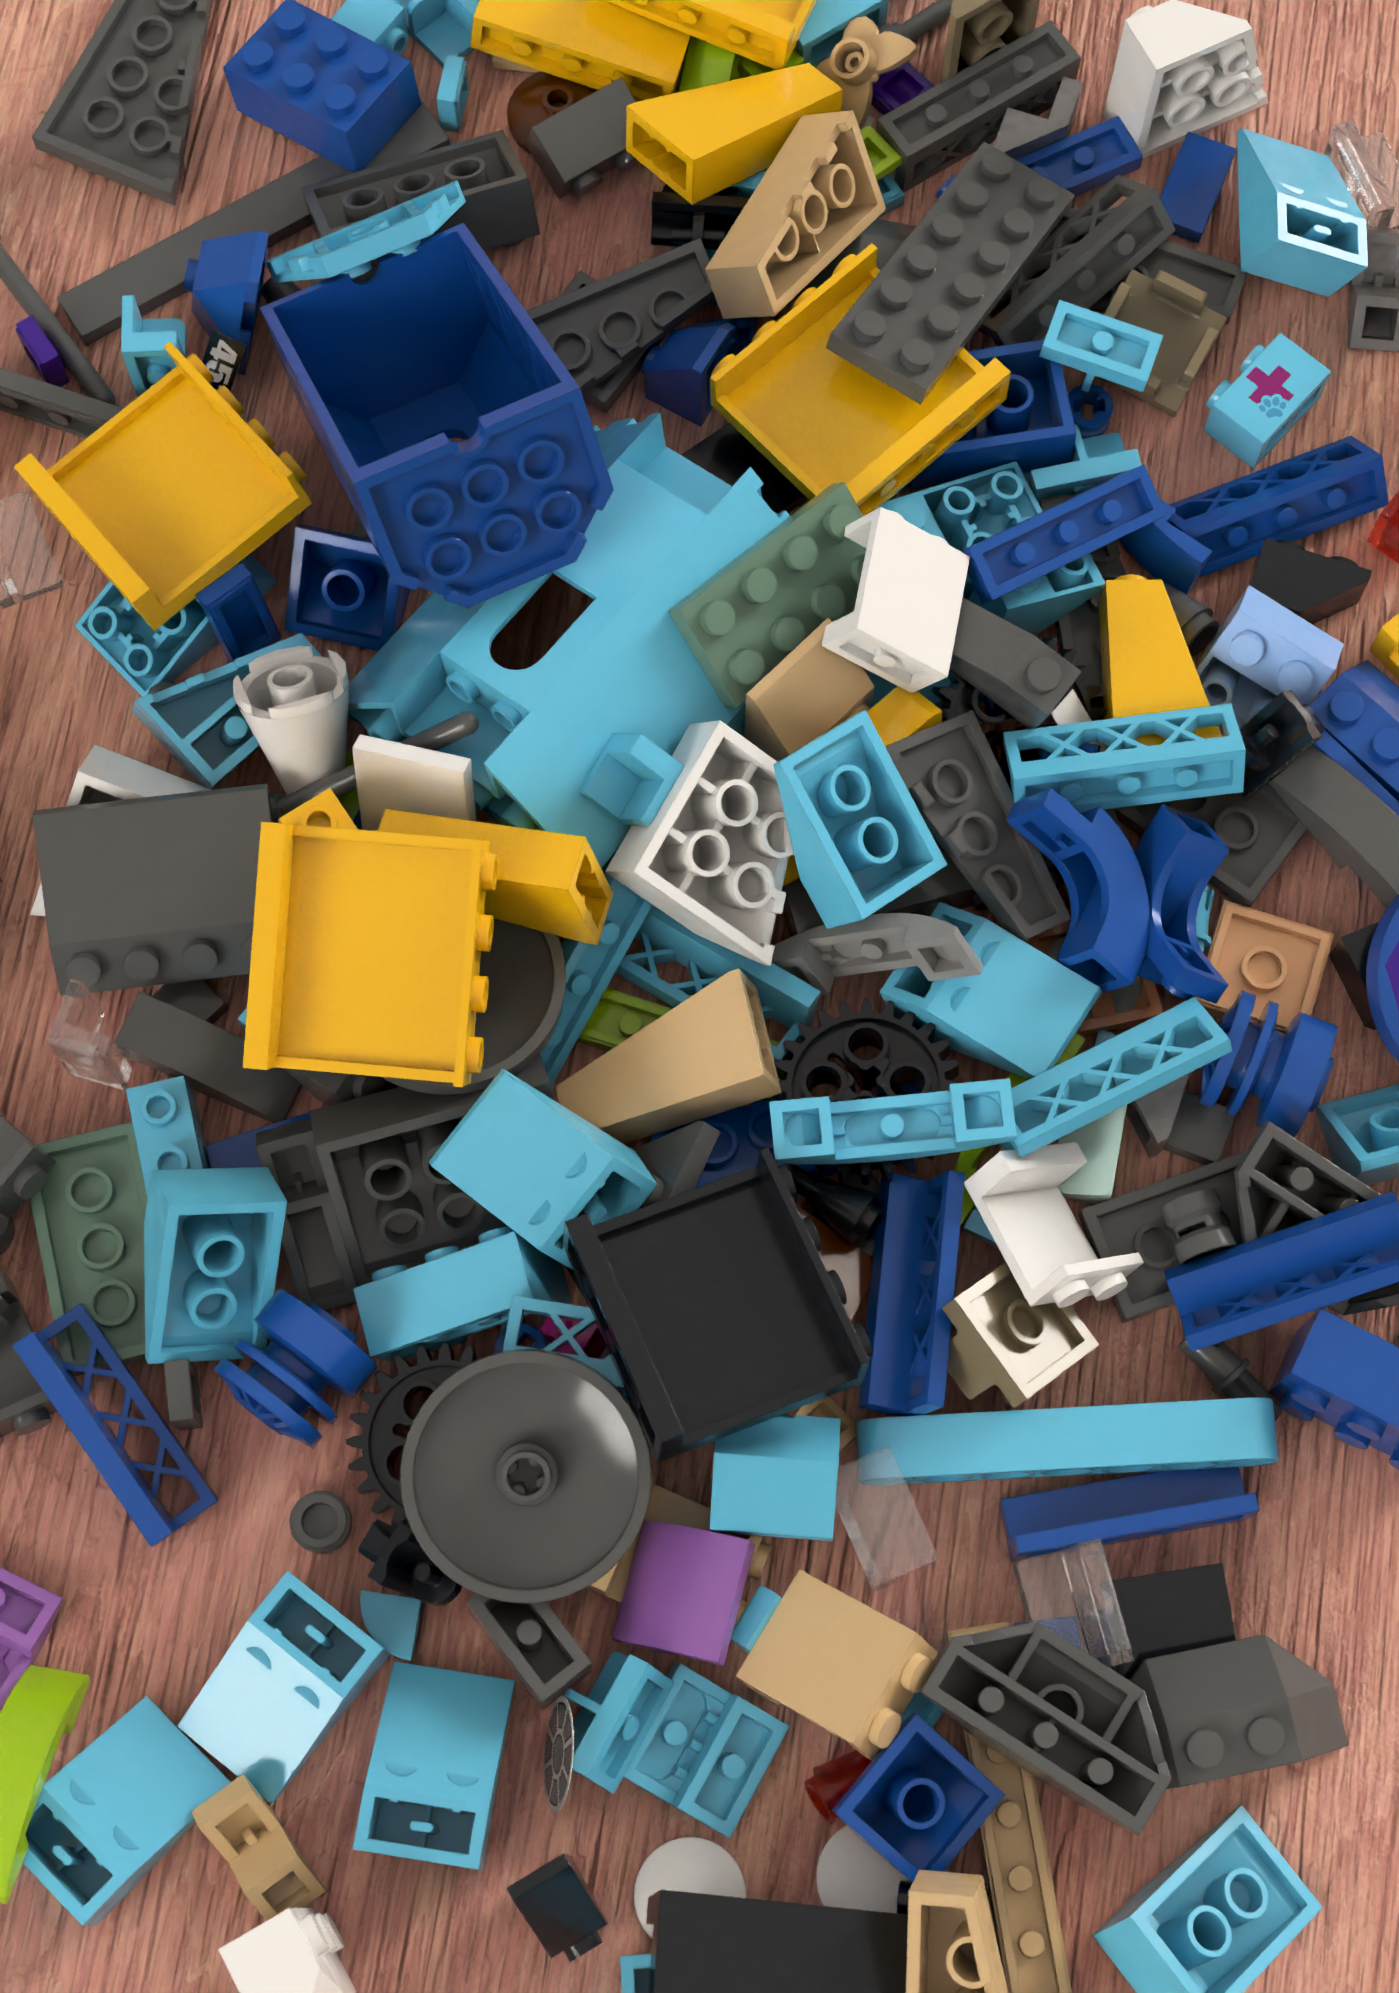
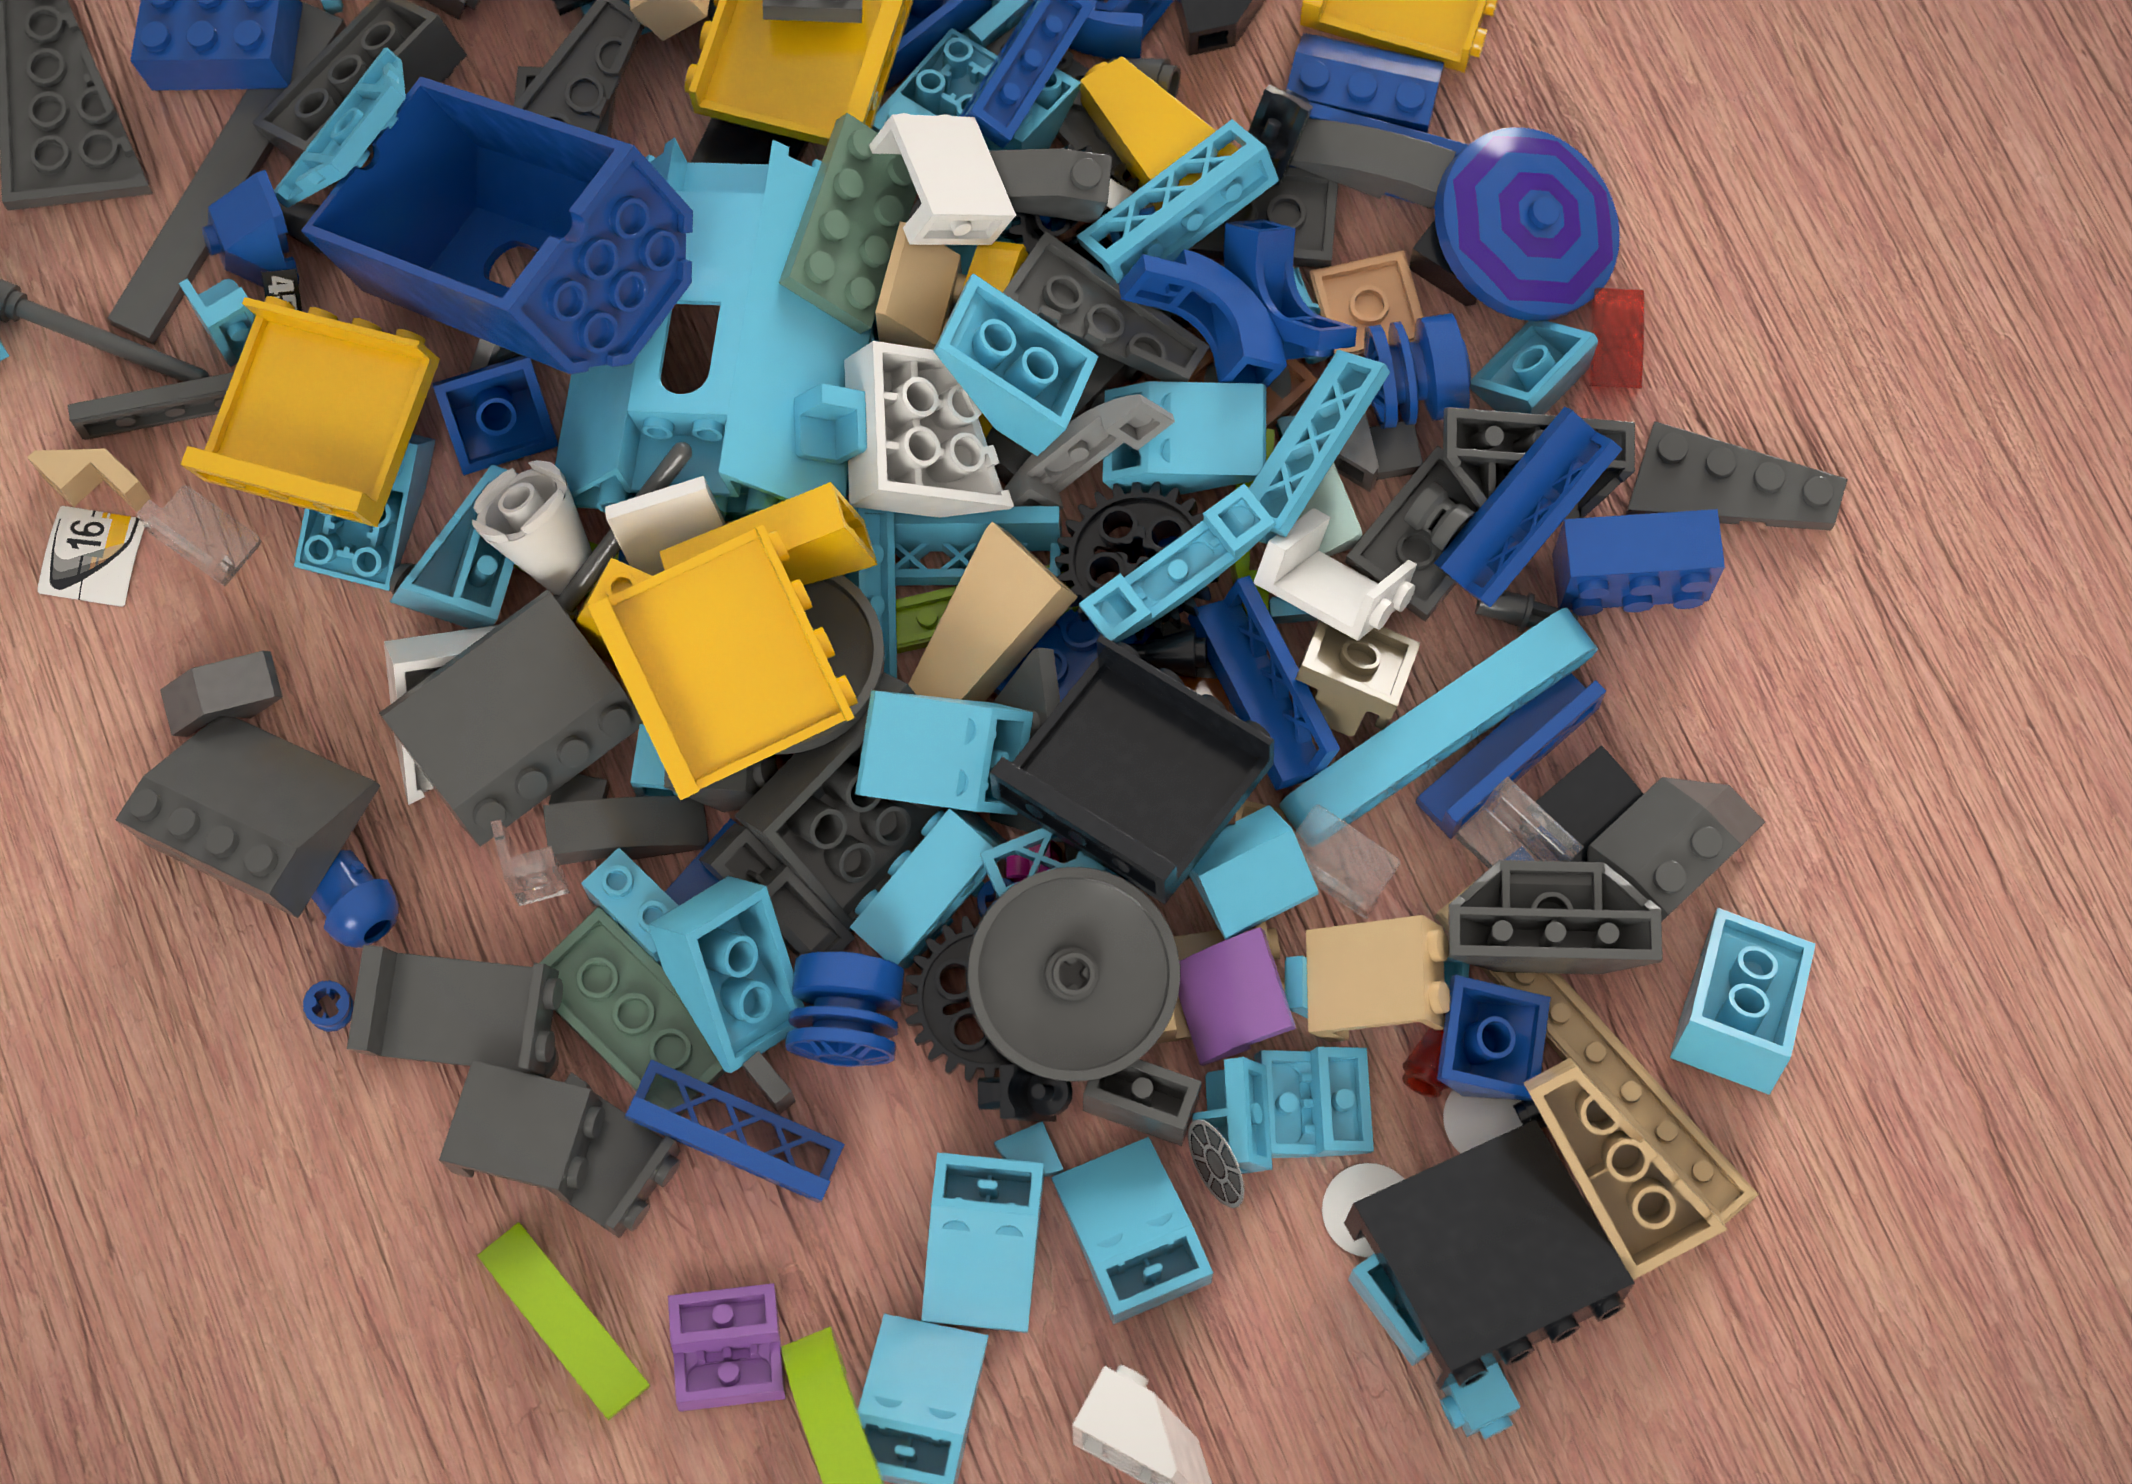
camera: 30 degrees left, 0 degrees up
(41, 352) = (126, 368): dark purple tile -> none
(238, 613) = (429, 481): blue tile -> none
(257, 1849) = (1037, 1367): tan slope -> none
(320, 1522) = (931, 1114): dark grey tile -> none
(560, 1908) = (1286, 1264): black slope -> none
(682, 367) = (655, 92): blue slope -> none
(1264, 653) = (1229, 70): light blue slope -> none

